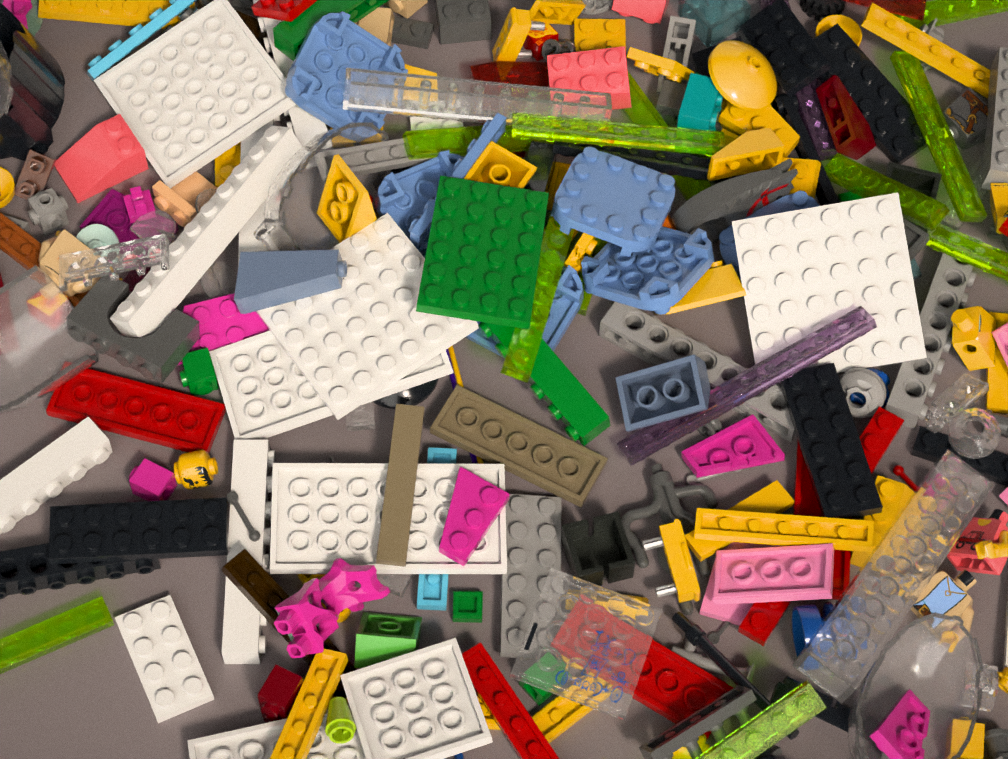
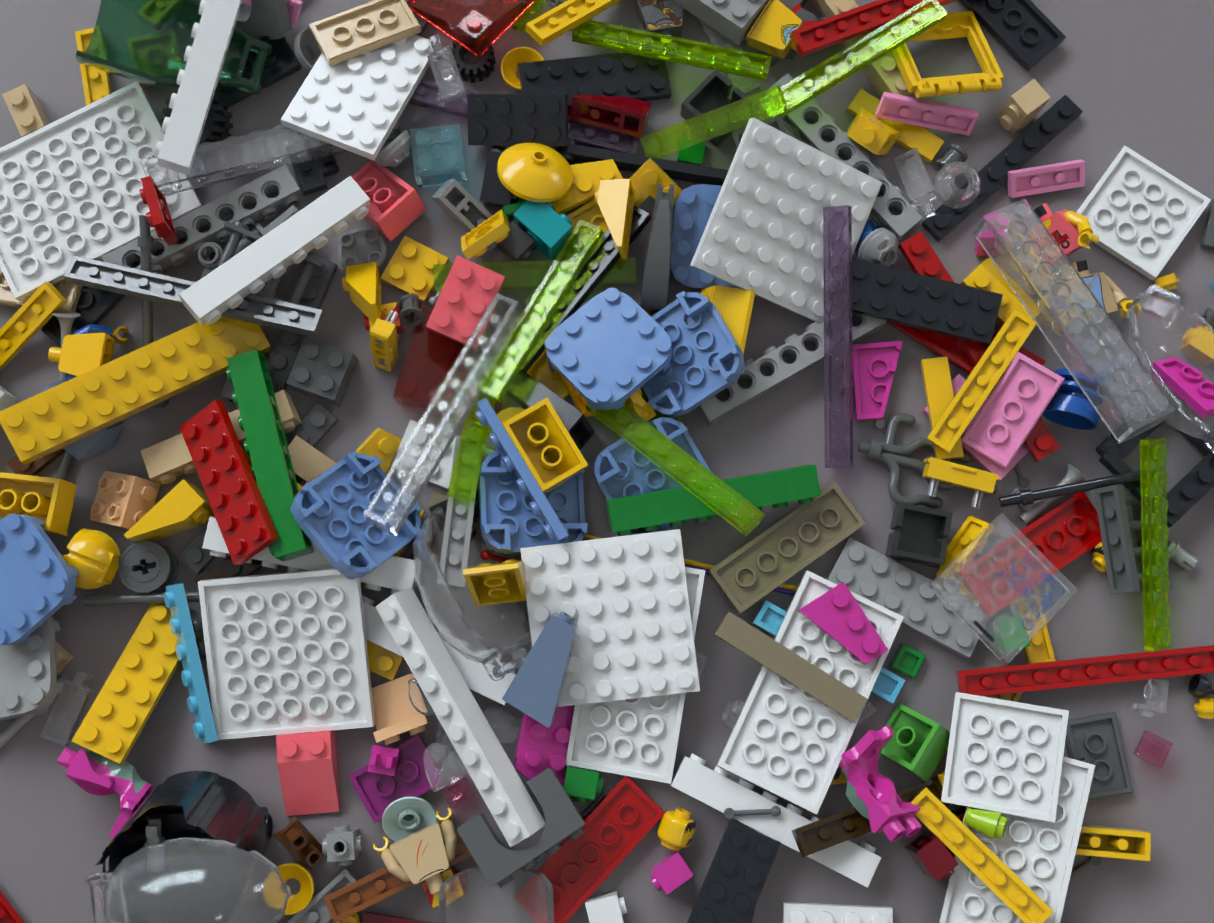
camera: 60 degrees left, 20 degrees up
(113, 260) = (456, 819): clear hinge -> none
(483, 252) = (620, 490): green plate -> none
(663, 392) = (809, 407): sand blue slope -> none
(898, 470) = (951, 259): red hinge -> none

